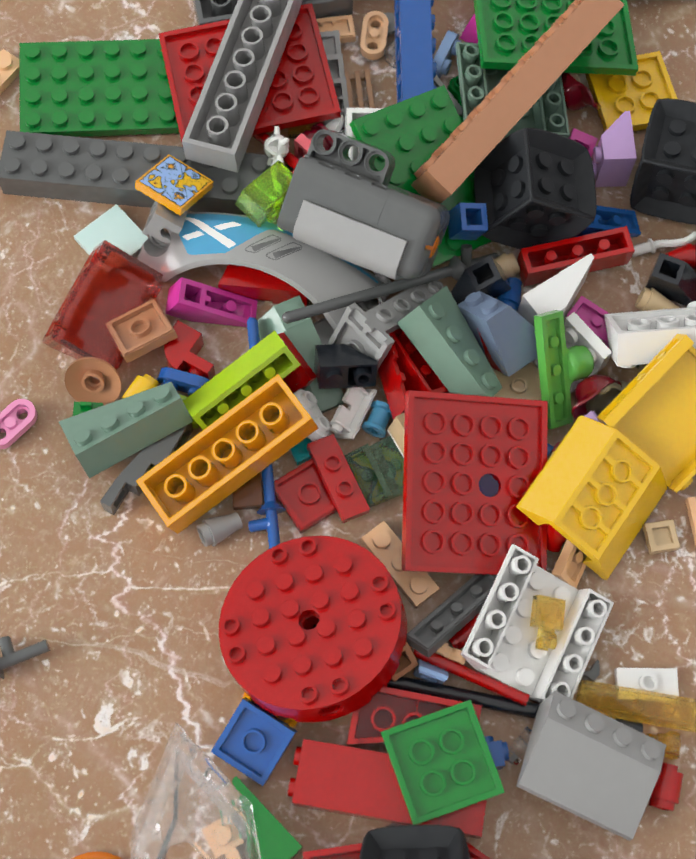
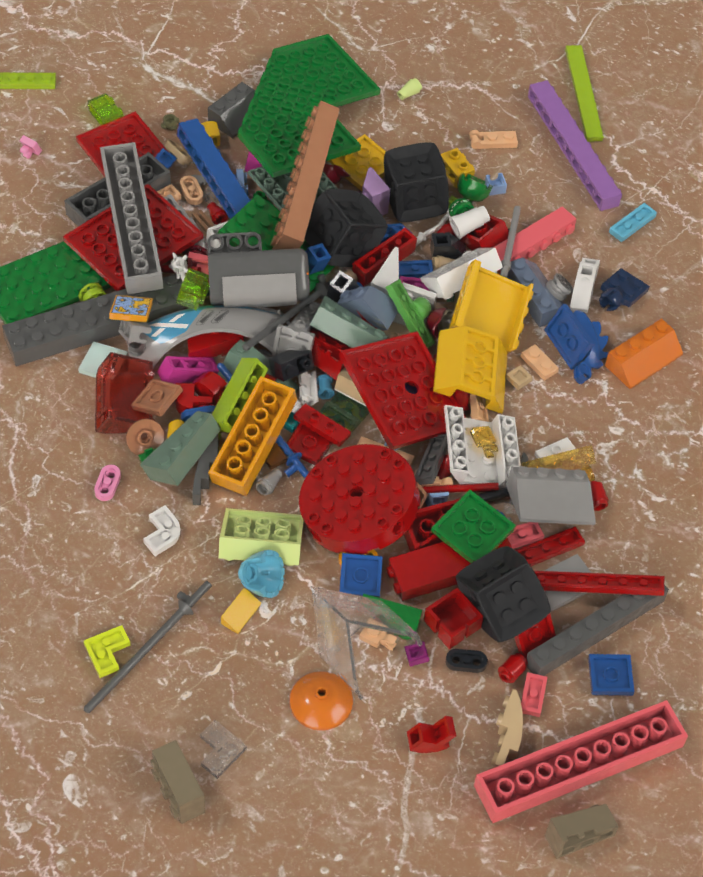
camera: 30 degrees left, 15 degrees down
(45, 536) = (167, 532): none -> white plate
(67, 707) = (240, 611): none -> yellow slope
(120, 673) = (263, 573): none -> medium azure hair
(151, 134) = (92, 293): none -> lime wheel
(157, 607) = (254, 531): none -> yellowish green slope
(220, 345) = (210, 385): none -> red brick
(386, 86) = (216, 213): none -> red cone
(518, 799) = (525, 534): none -> coral plate
(542, 832) = (552, 546): none -> red tile
(609, 293) = (415, 268): none -> blue plate

